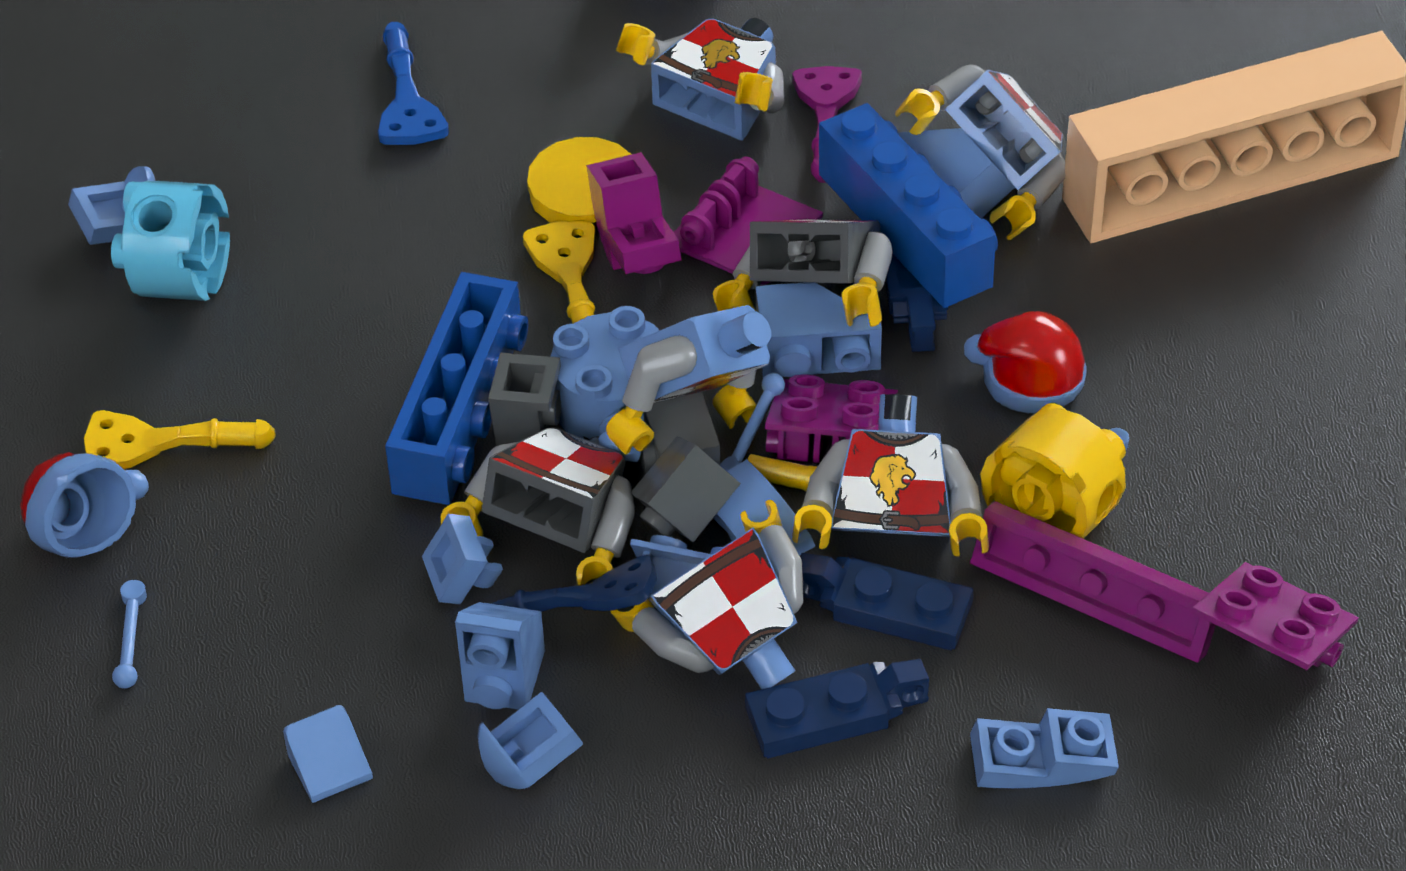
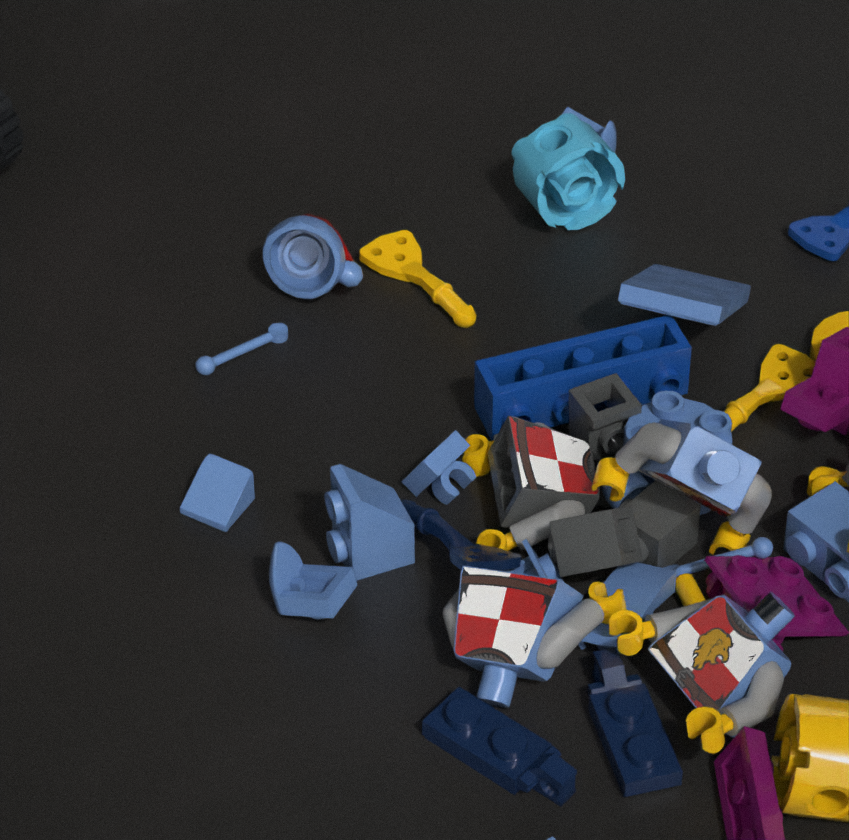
camera: 55 degrees right, 5 degrees down
(425, 251) = (684, 294): none -> medium blue tile

